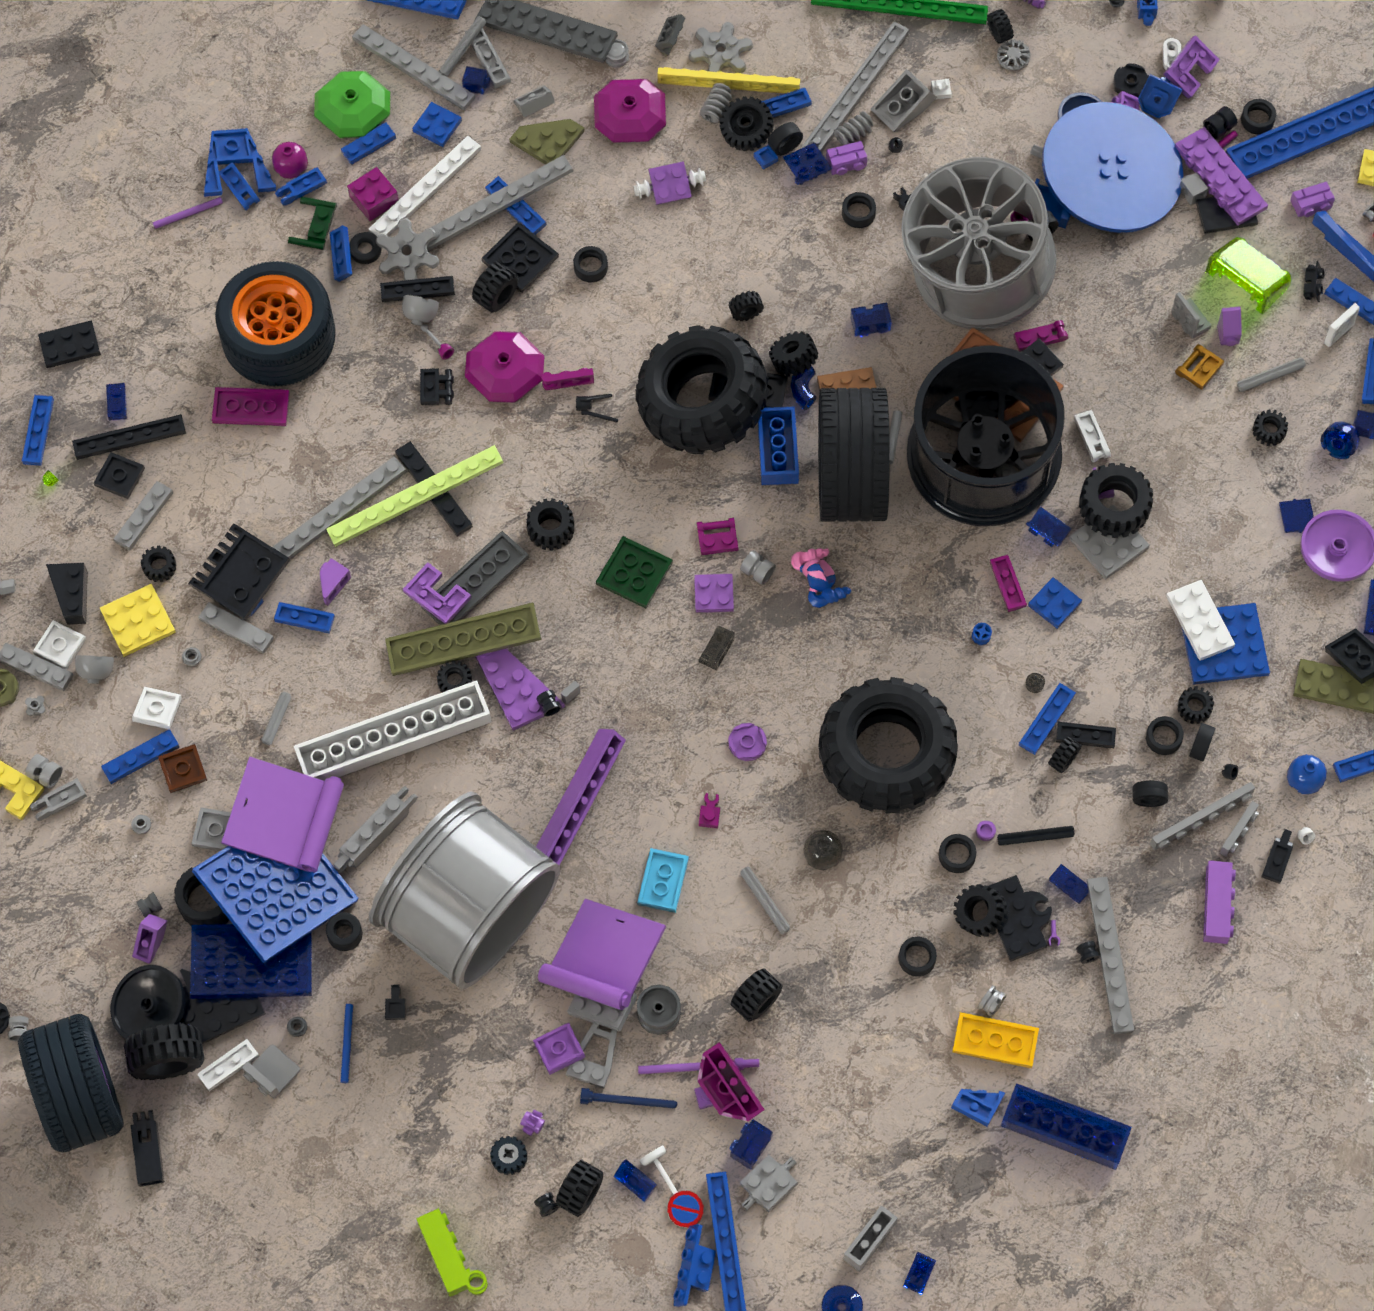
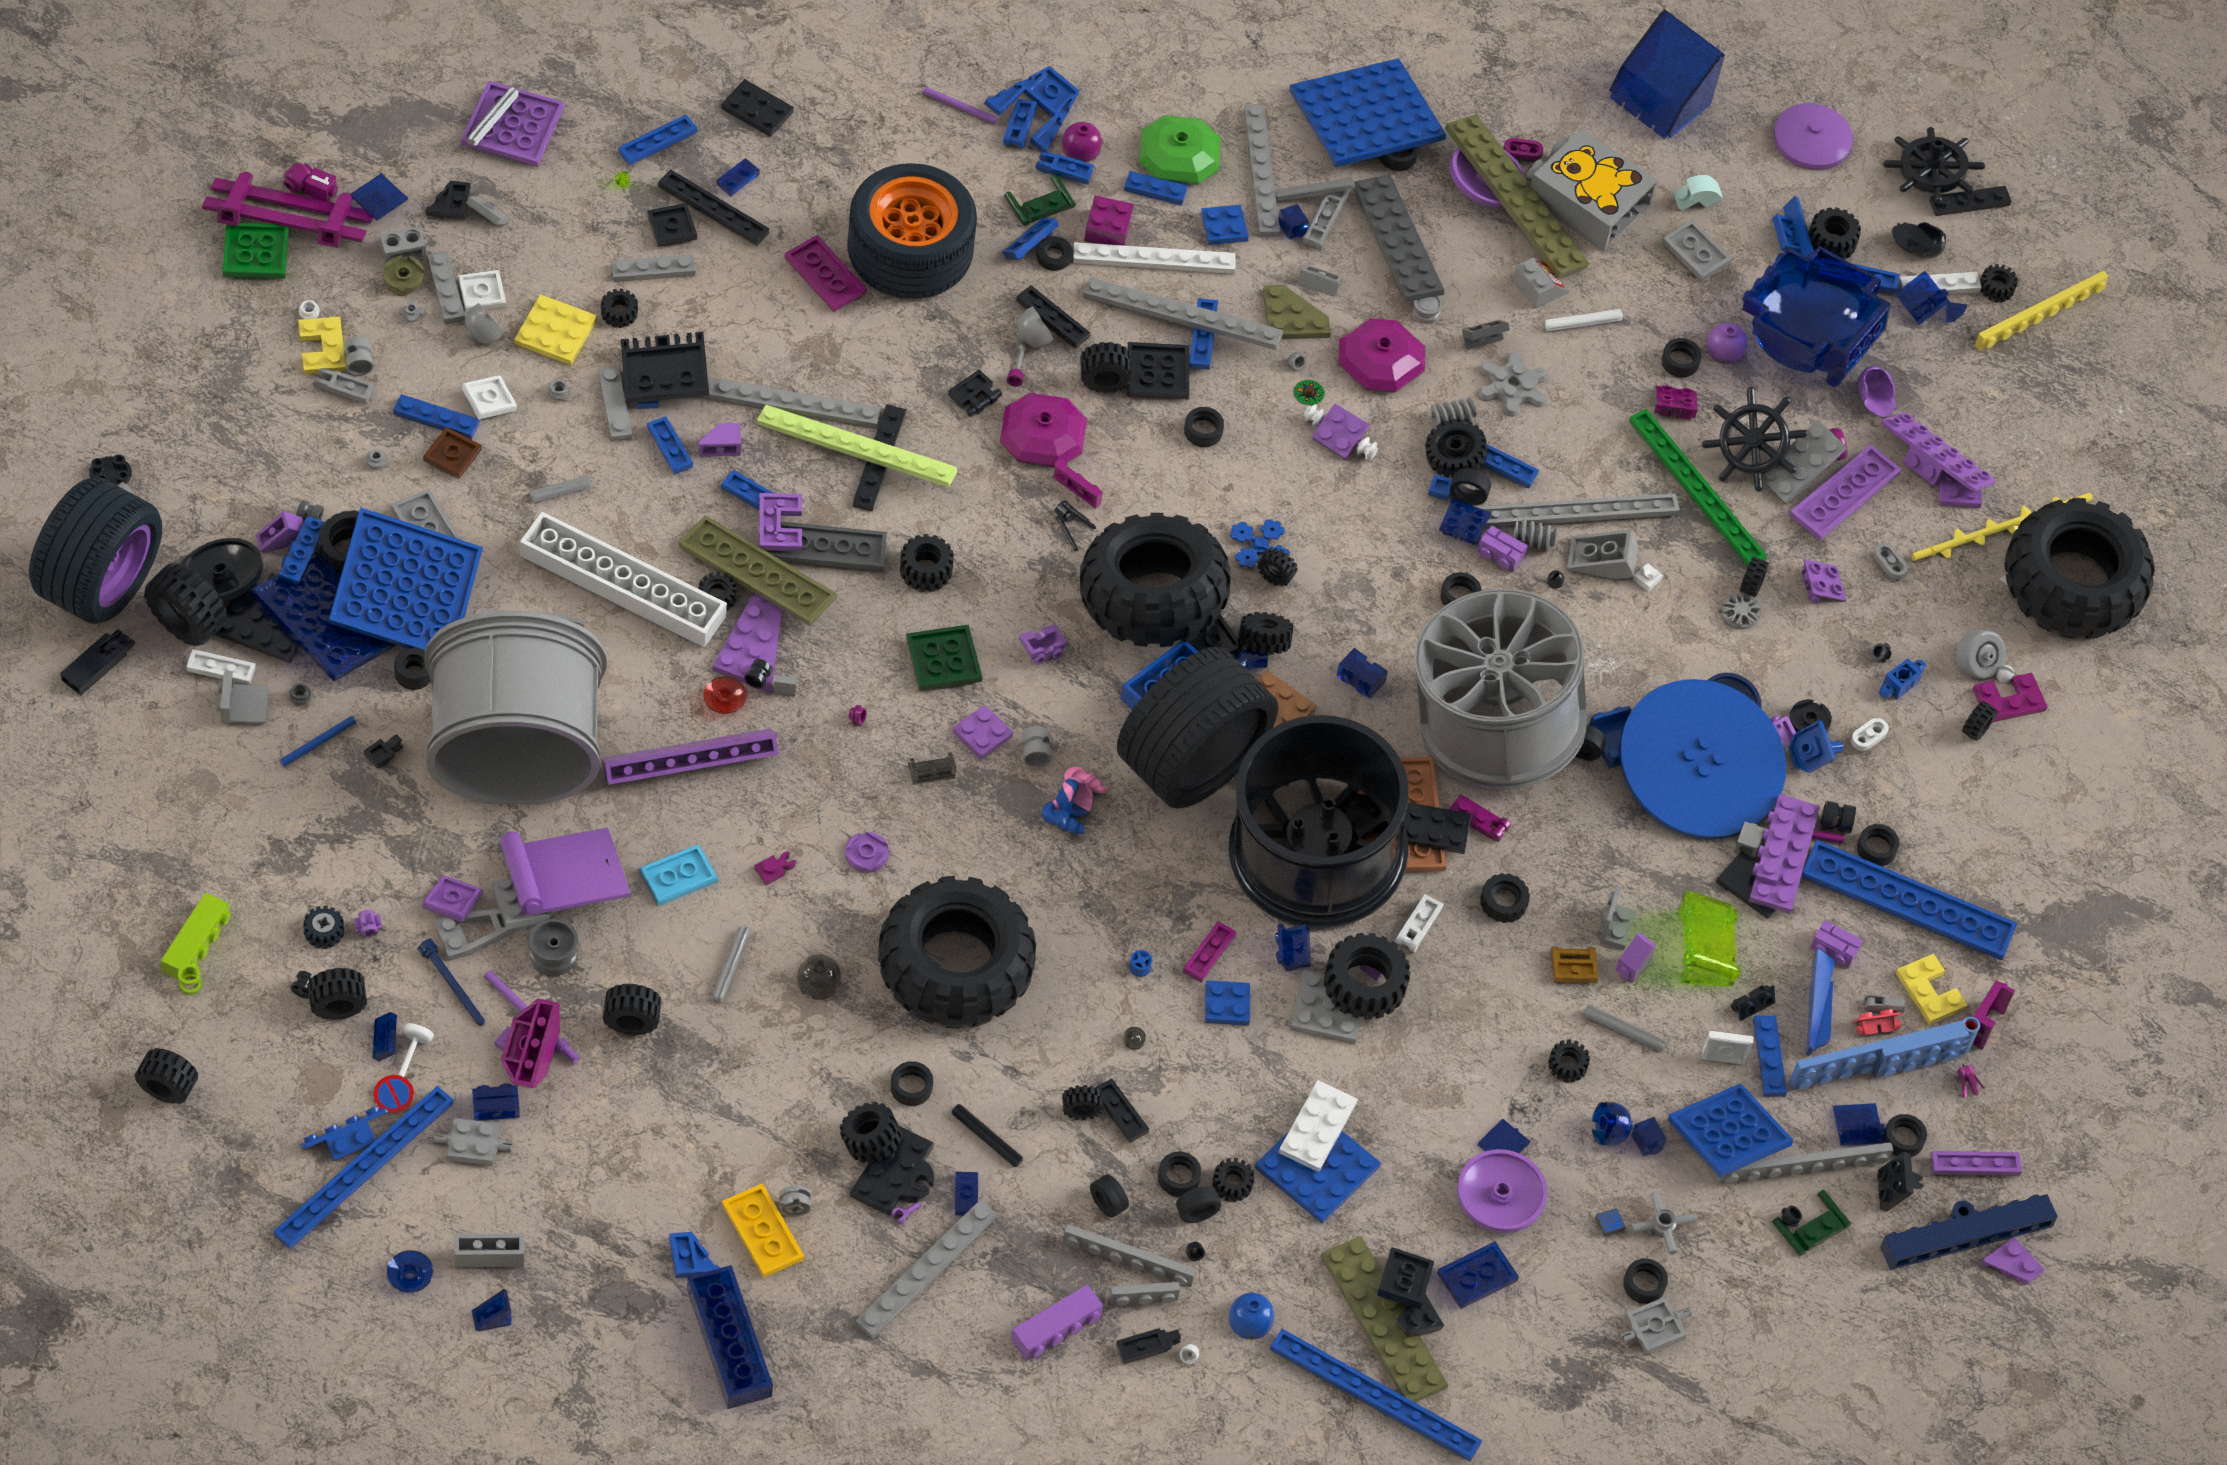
camera: 40 degrees right, 10 degrees down
(71, 590) = (535, 262): black wedge -> none
(181, 935) = (301, 550): none -> blue bracket
(284, 814) = (471, 544): medium lavender door -> none
(386, 595) = (743, 488): none -> blue plate
(396, 244) = (1085, 294): light grey plate -> none
(544, 730) = (725, 688): none -> clear red dish
(587, 165) = (1300, 359): none -> light grey hinge
(617, 178) = (1309, 392): none -> piece
(633, 663) = (858, 715): none -> magenta plate
(679, 499) = (1044, 644): none -> medium lavender cylinder
(713, 303) = (1258, 544): none -> blue plant
(717, 542) = (1034, 702): magenta plate -> none
(734, 81) = (1485, 407): light yellow plate -> none
(917, 941) = (792, 1102): black tyre -> none
(986, 831) = (955, 1093): medium lavender tile -> none
(1047, 718) = (1106, 1068): blue plate -> none
(1087, 952) = (912, 1248): black wheel -> none
(1121, 356) = (1500, 912): none -> black tyre
(1193, 52) = (1855, 747): medium lavender plate -> none

